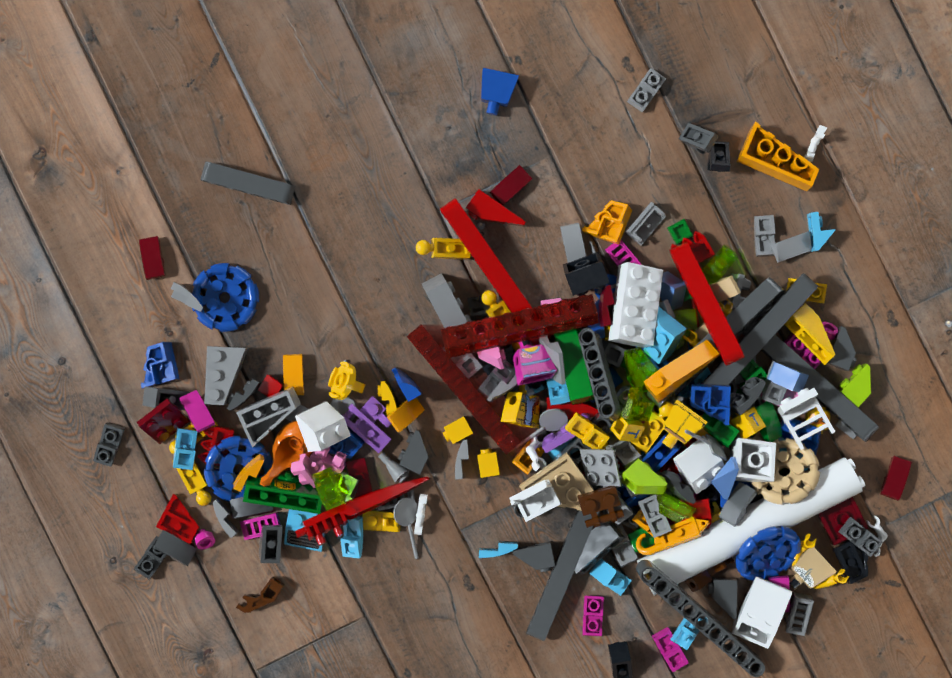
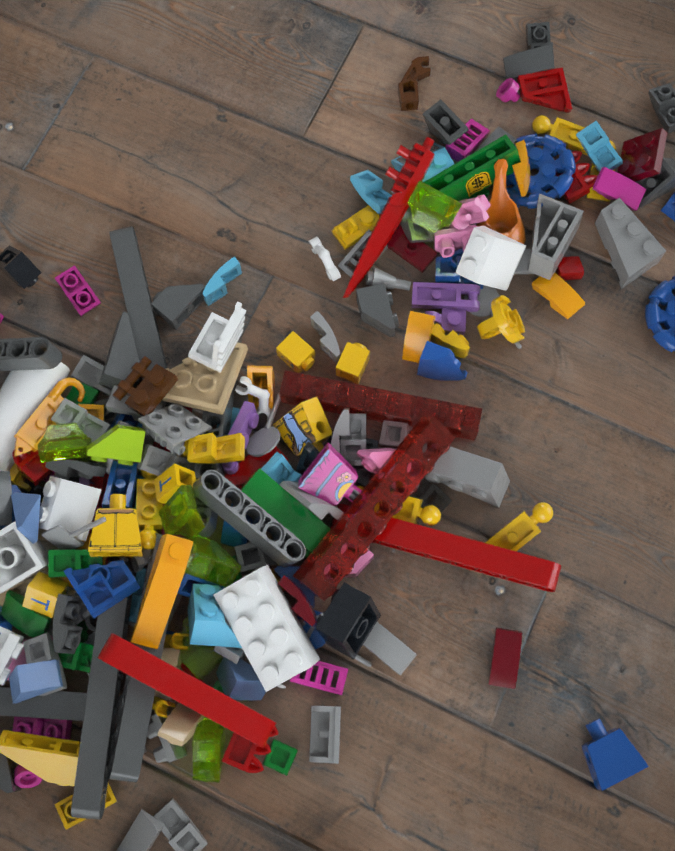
camera: 140 degrees right, 15 degrees down
(222, 512) = (501, 117): light grey slope -> none
(237, 399) = (587, 244): dark grey slope -> none
(405, 515) = (340, 244): light grey piece -> none
(489, 210) = (510, 610): red slope -> none
(610, 223) = (365, 704): light orange slope -> none
(610, 576) = (88, 339): medium azure slope -> none

